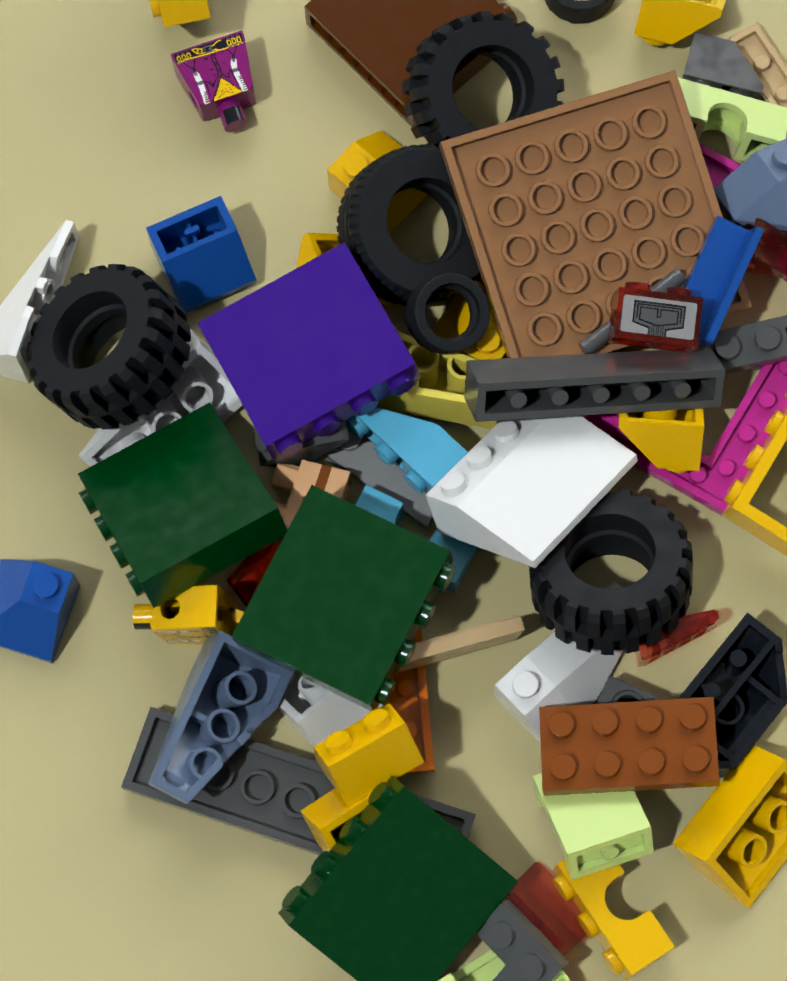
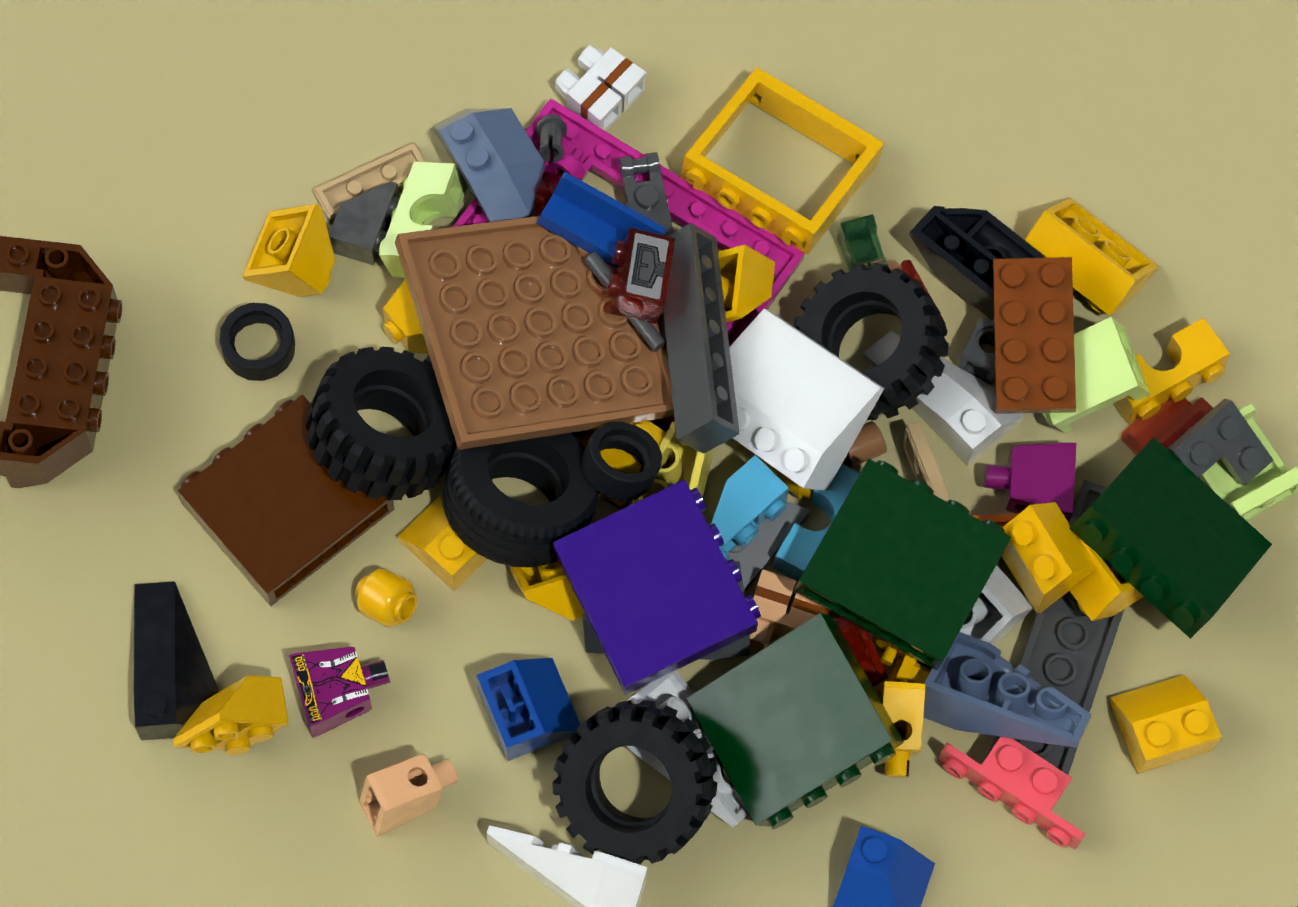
camera: 95 degrees left, 5 degrees down
(103, 135) = (404, 791): none -> light nougat torso
(130, 745) = (1021, 782): none -> coral bracket
(204, 898) = (1165, 723): none -> yellow slope
(311, 119) = (386, 598): none -> yellow head
(472, 764) = (1036, 476): none -> magenta torso
(504, 578) = (867, 445): none -> medium nougat beam
(730, 577) = (860, 242): none -> clear green leg

